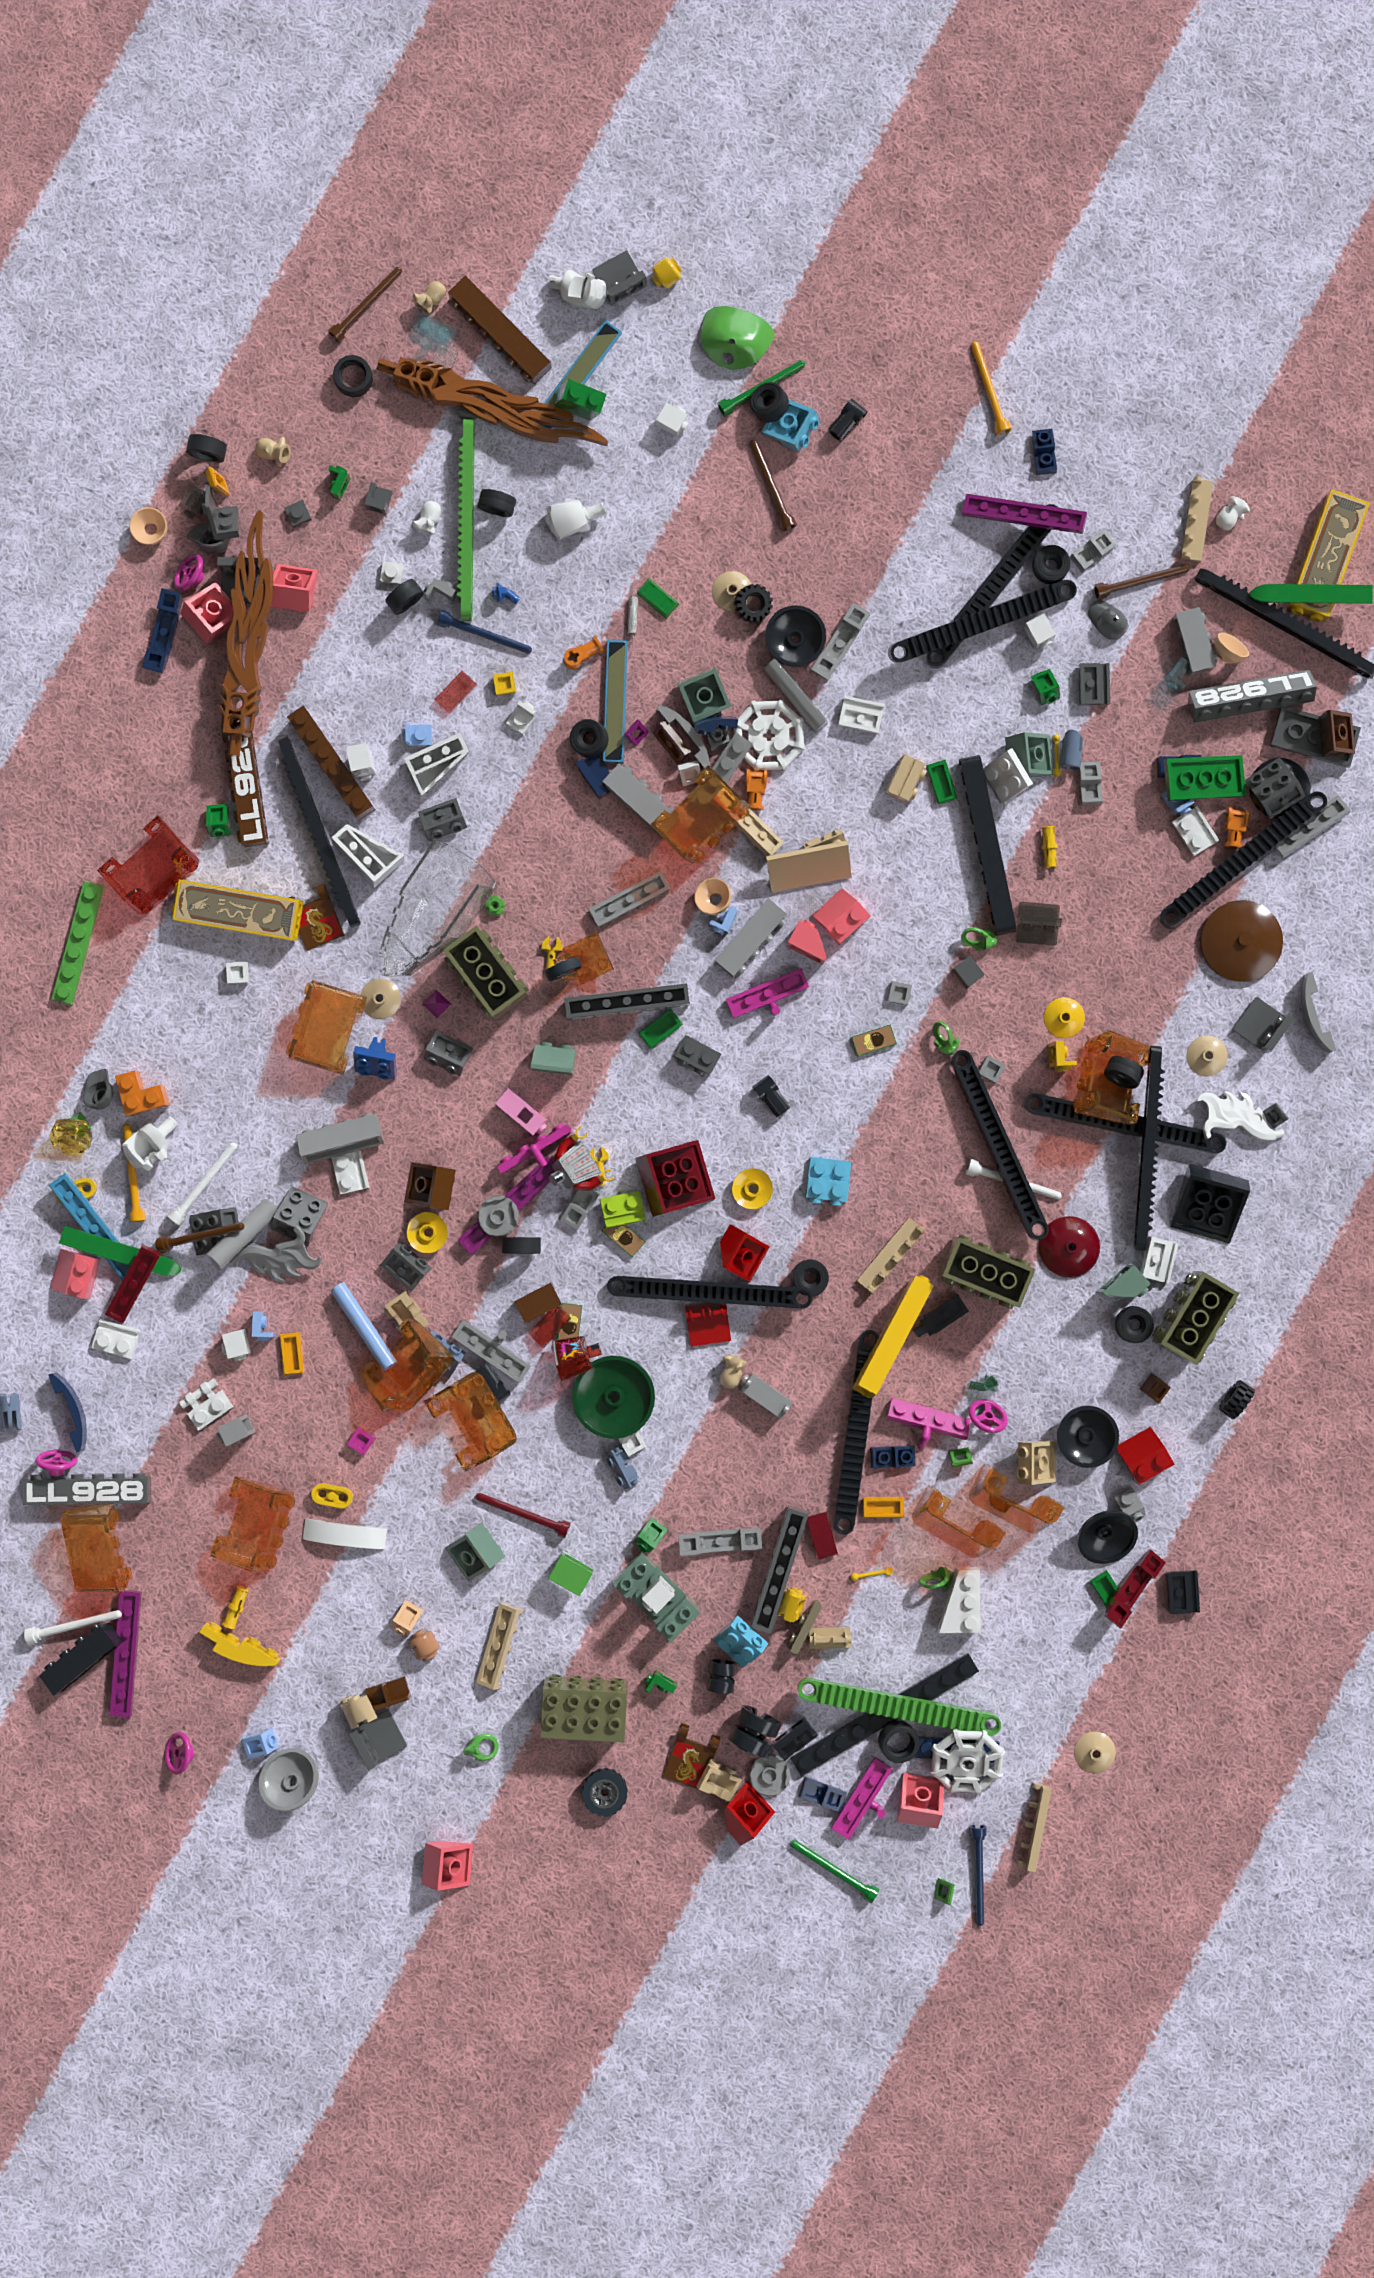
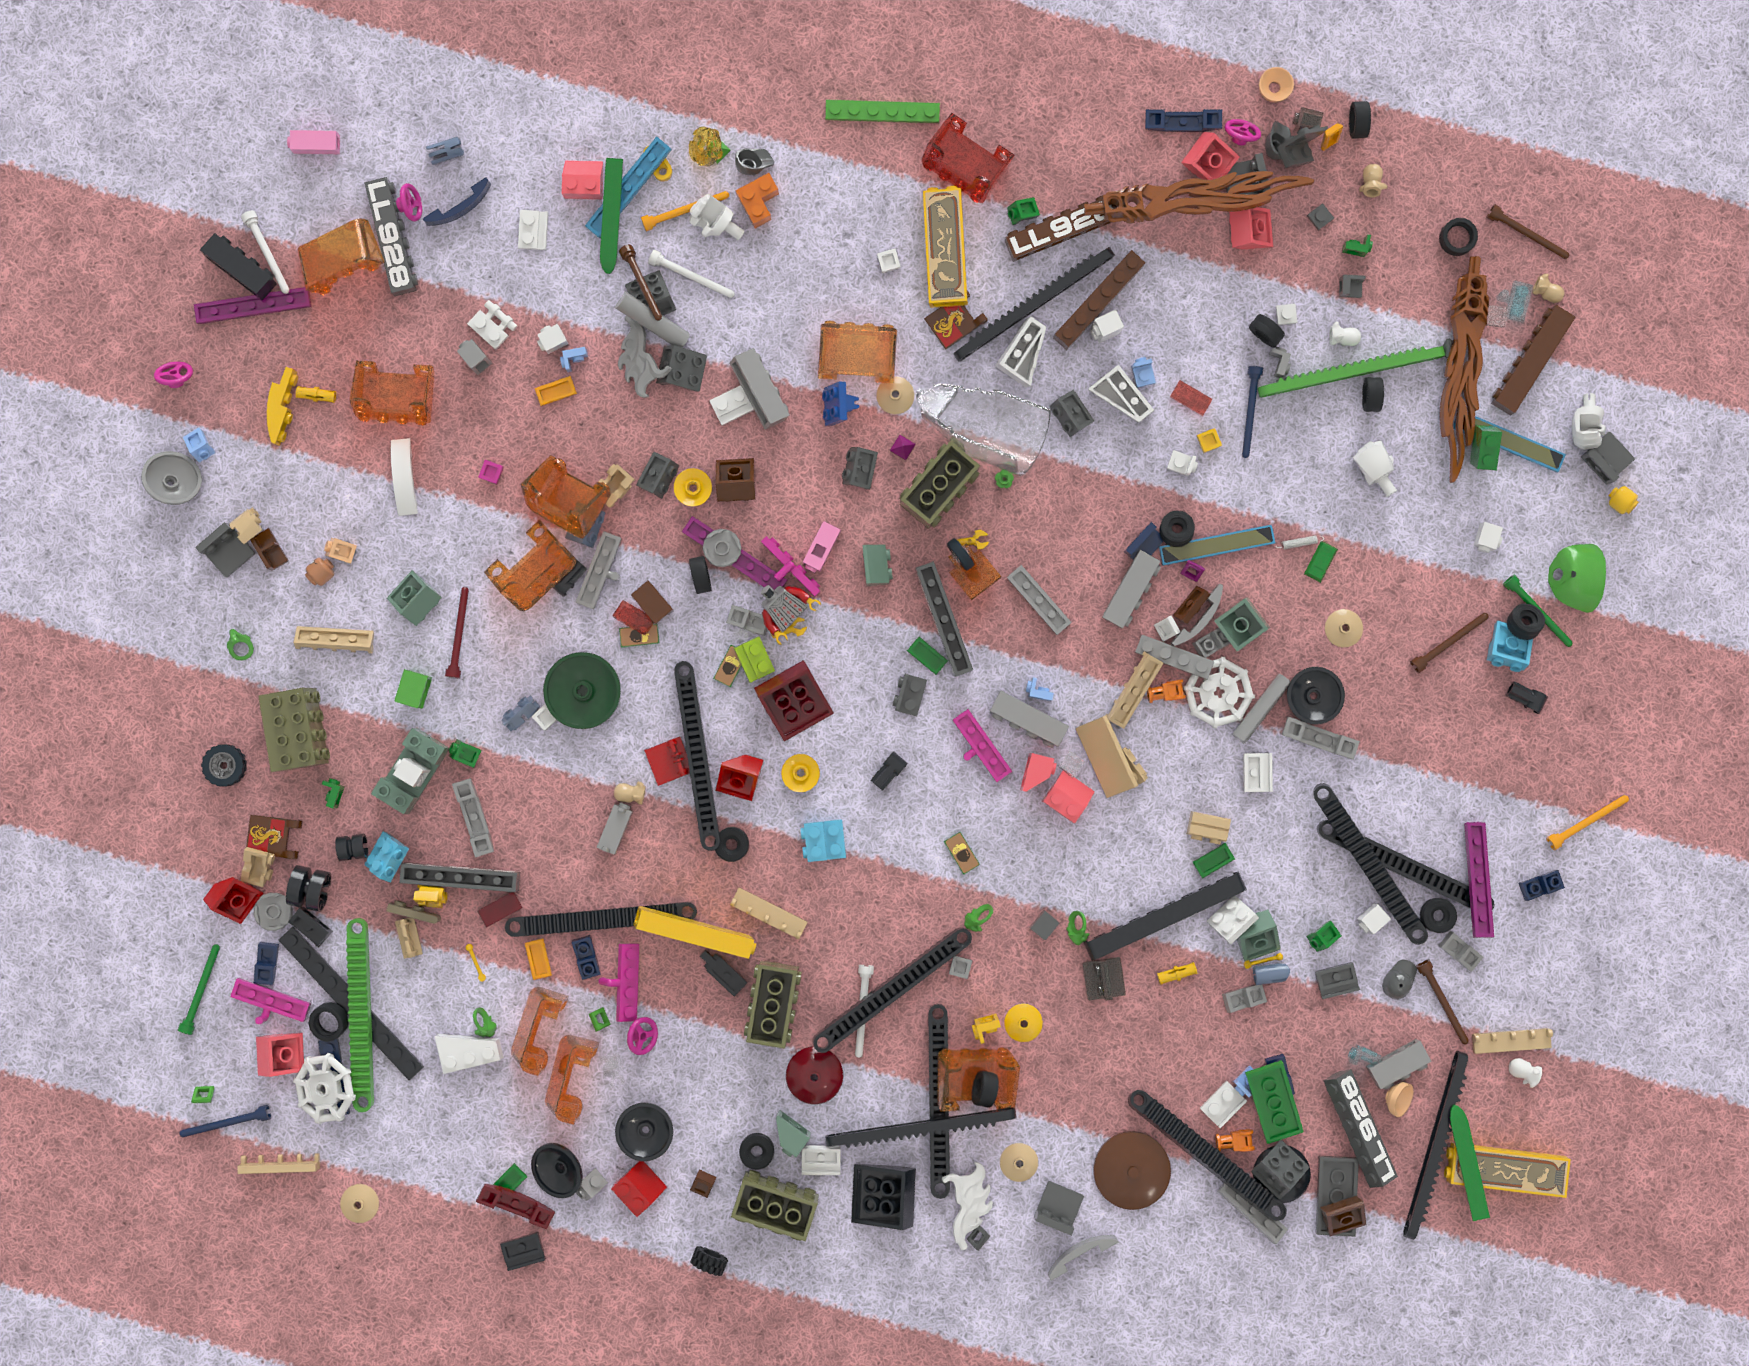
camera: 70 degrees right, 0 degrees up
(132, 1283) = (585, 233): dark red plate -> none
(332, 1495) = (435, 457): yellow plate -> none
(363, 1326) = (594, 449): light blue piece -> none
(447, 1865) = (127, 638): coral slope -> none
(500, 592) = (1291, 416): blue plate -> none
(574, 1356) = (610, 645): clear red torso -> none
(583, 653) = (1254, 505): orange connector -> none
(702, 817) = (1128, 648): clear orange windscreen -> none
(709, 724) = (1214, 634): dark blue slope -> none
(709, 888) = (1064, 669): light nougat piece -> none
(762, 594) = (1329, 641): black tyre -> none
(899, 993) = (1010, 866): light grey tile -> none
(990, 1383) = (672, 1031): clear green plate -> none
(1036, 1462) = (610, 1090): tan plate -> none

